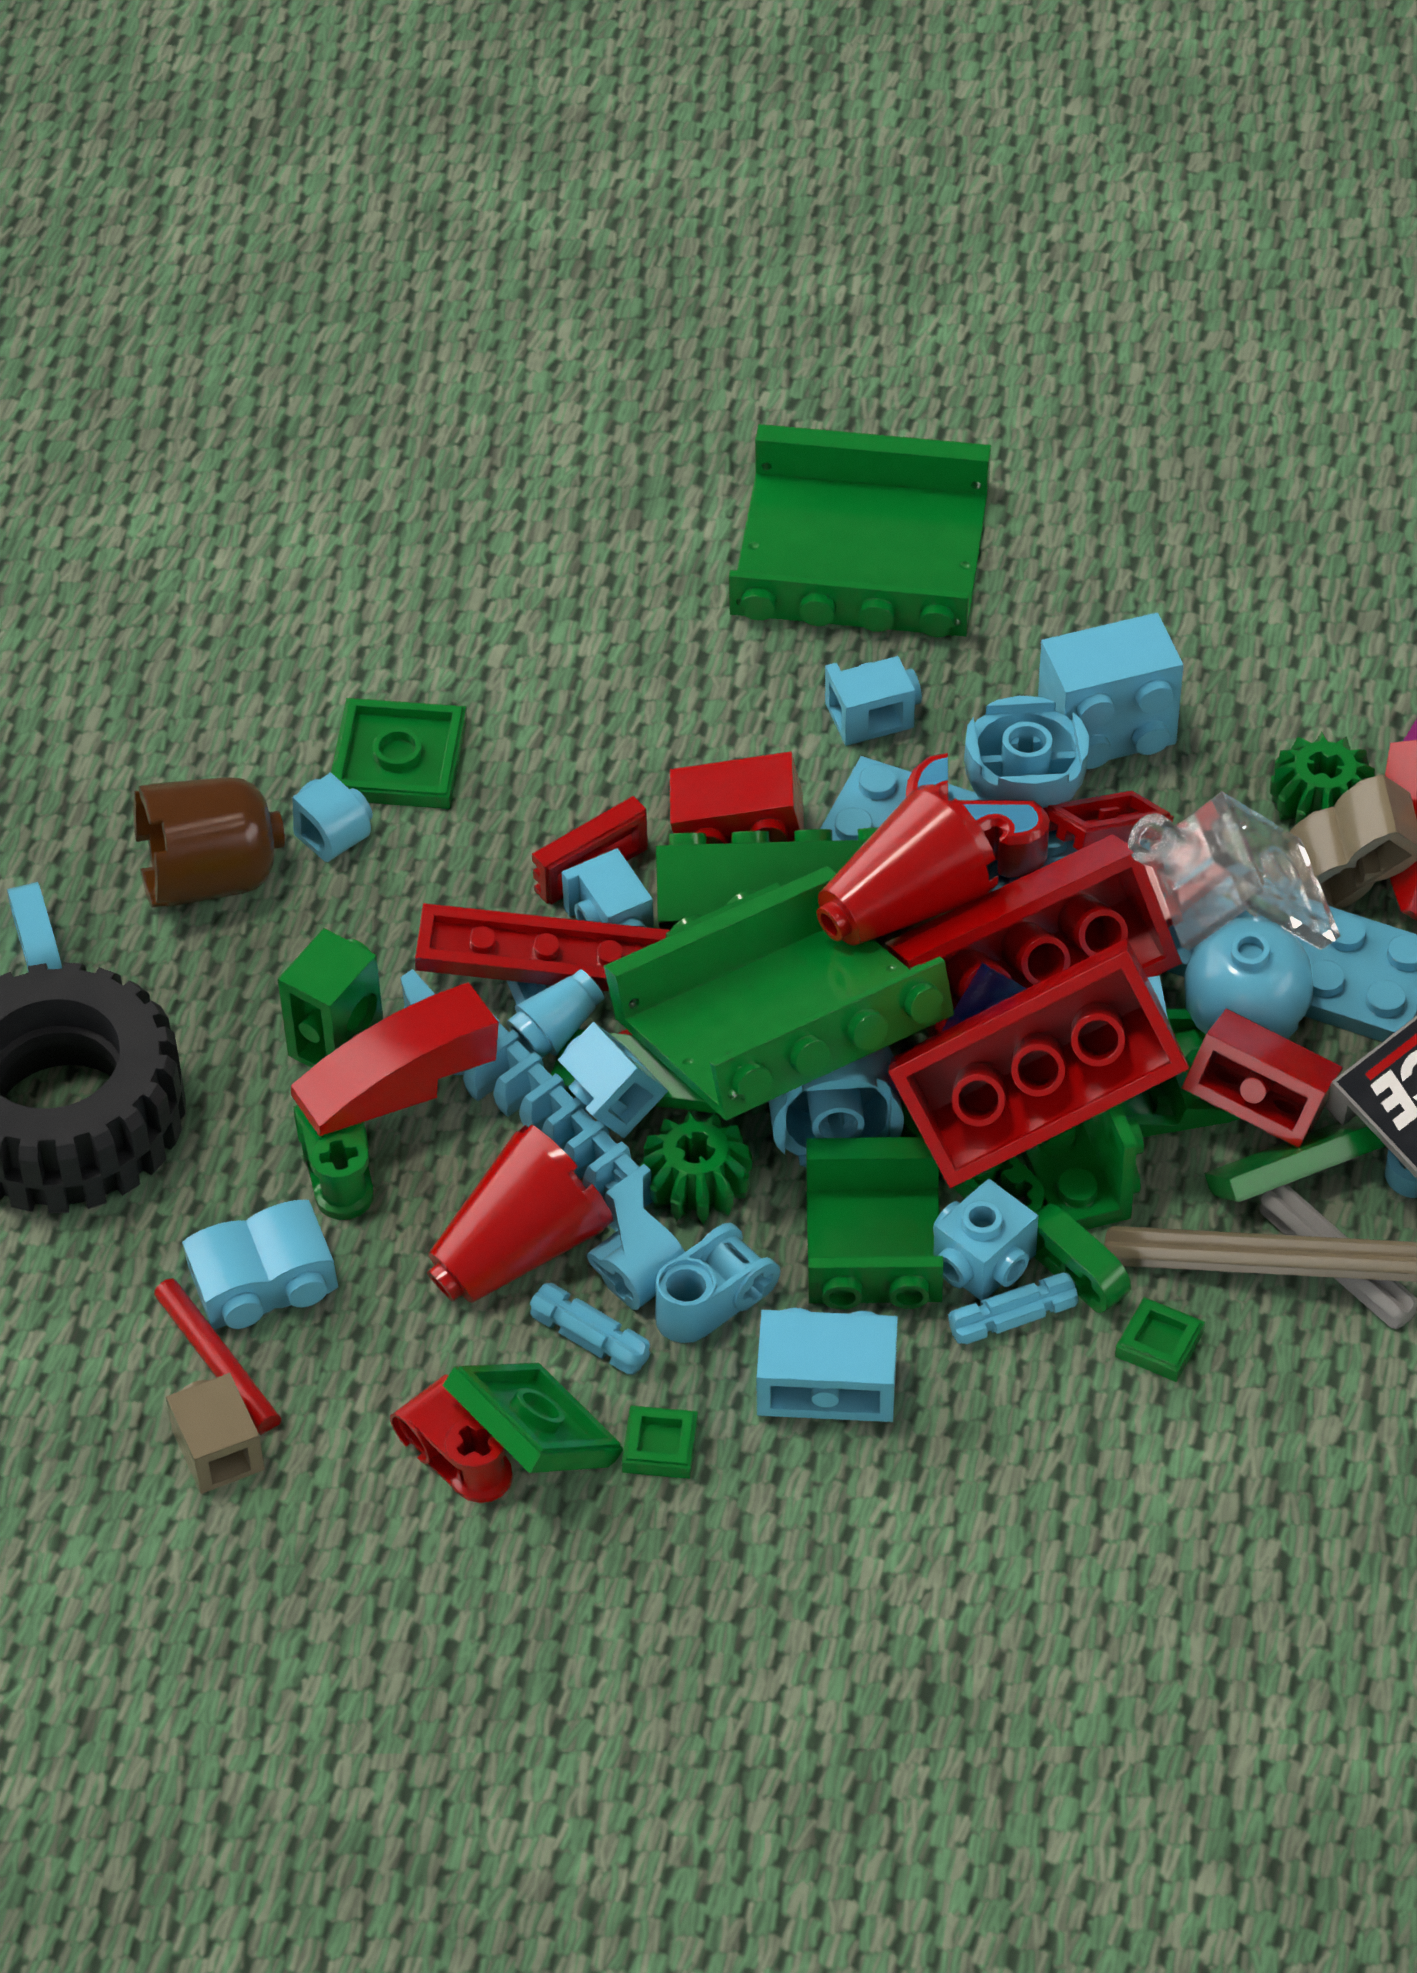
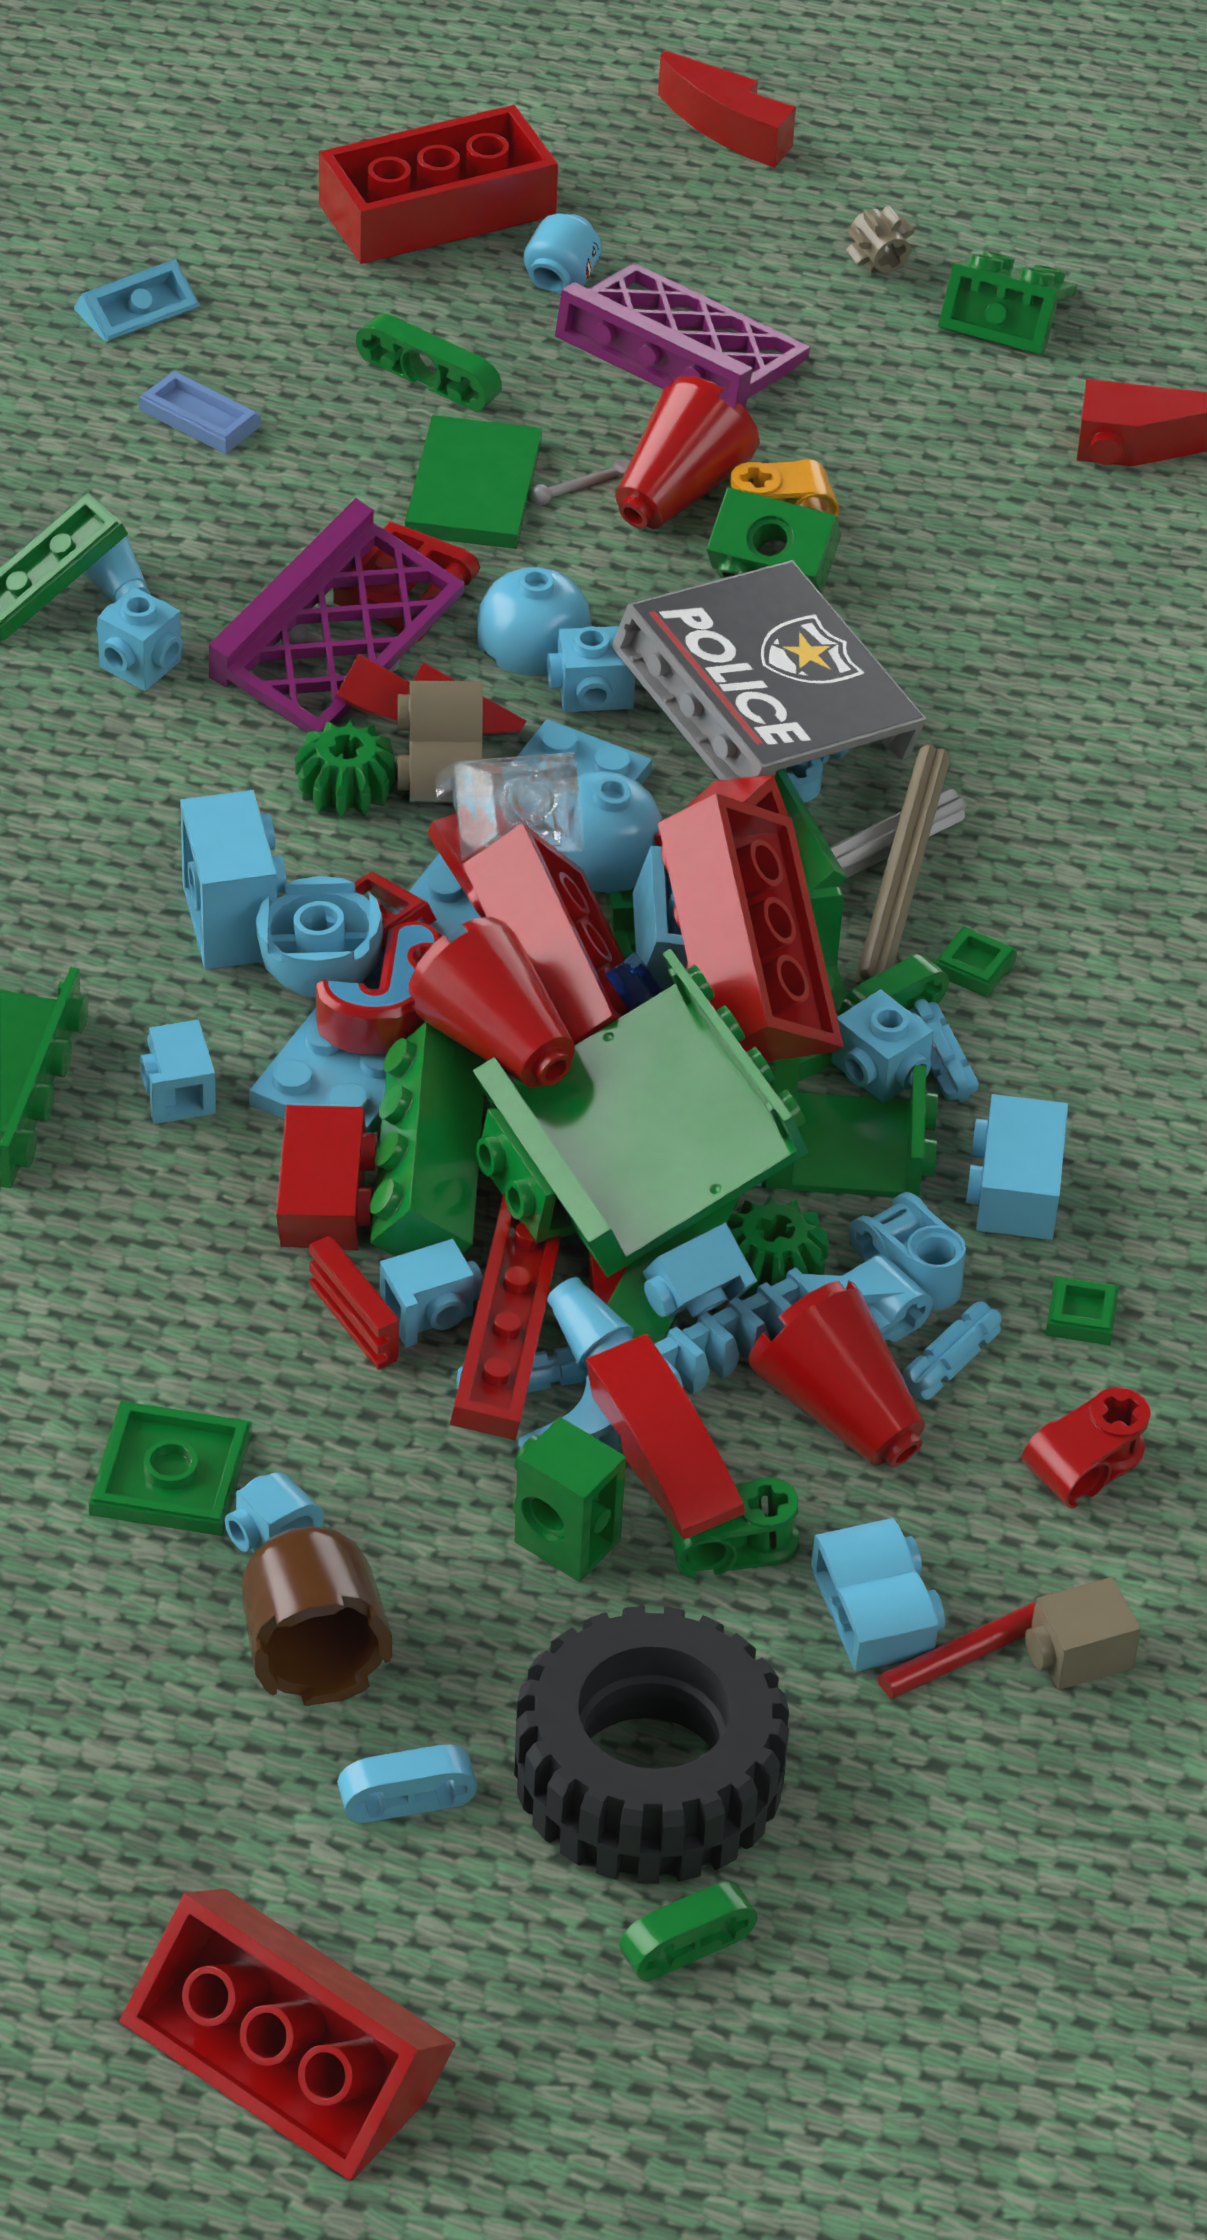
camera: 90 degrees left, 5 degrees down
(533, 1417) = (1082, 1375): green tile -> none

